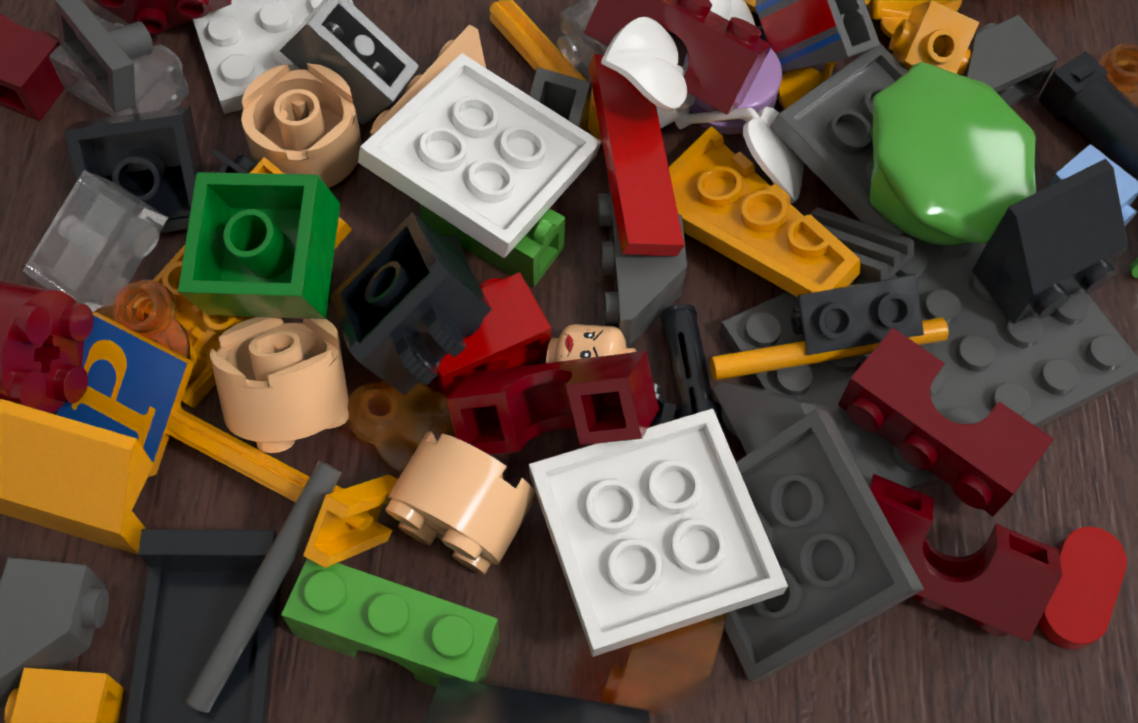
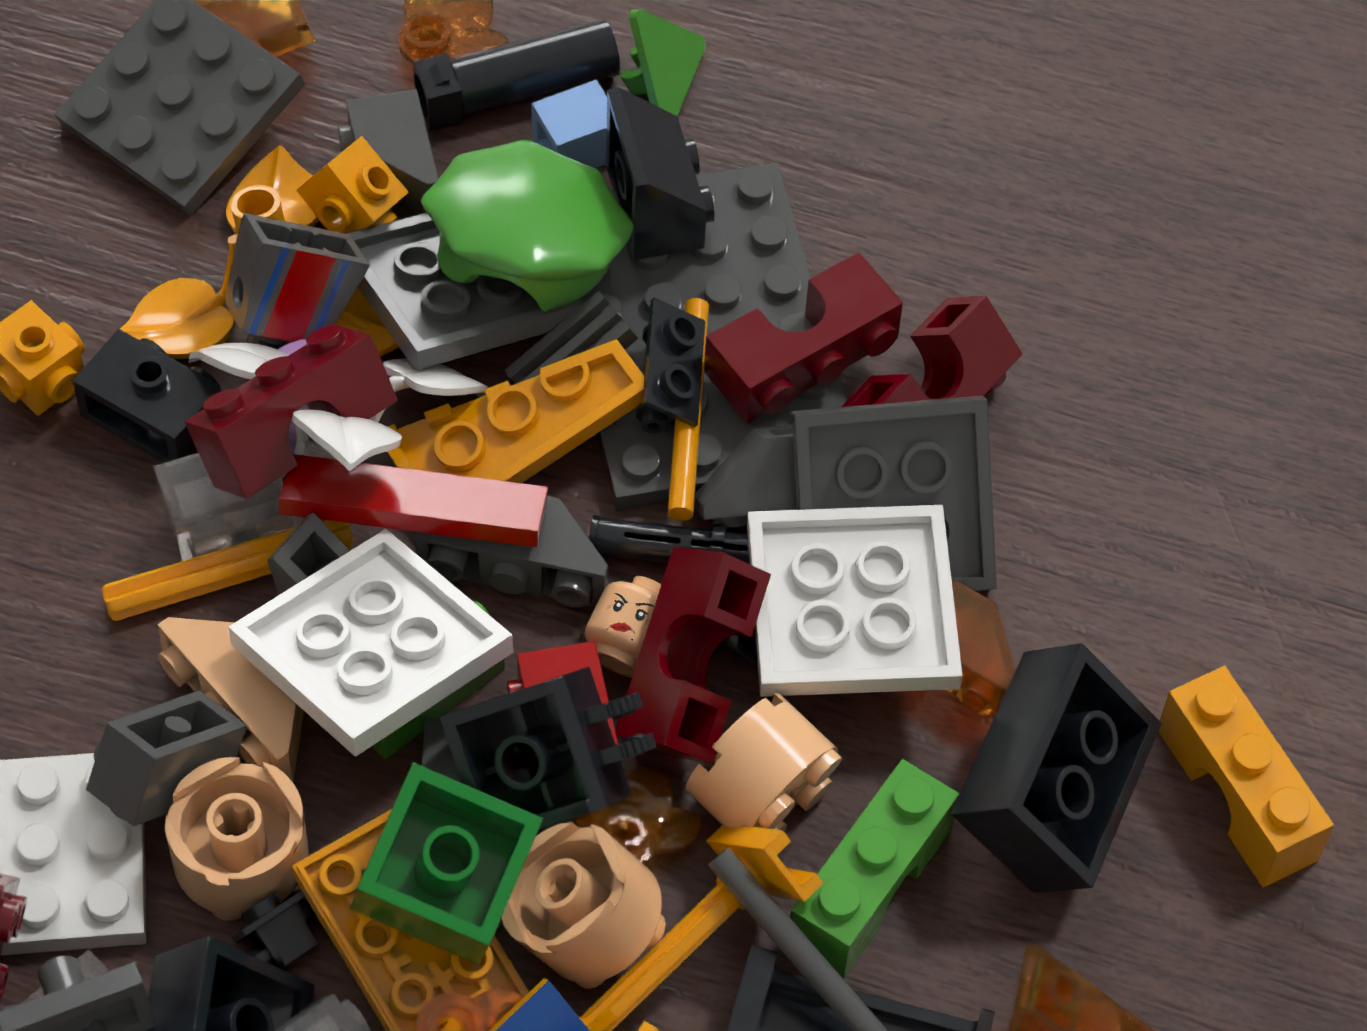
camera: 75 degrees left, 5 degrees down
(1086, 595) = (959, 276): red tile -> none

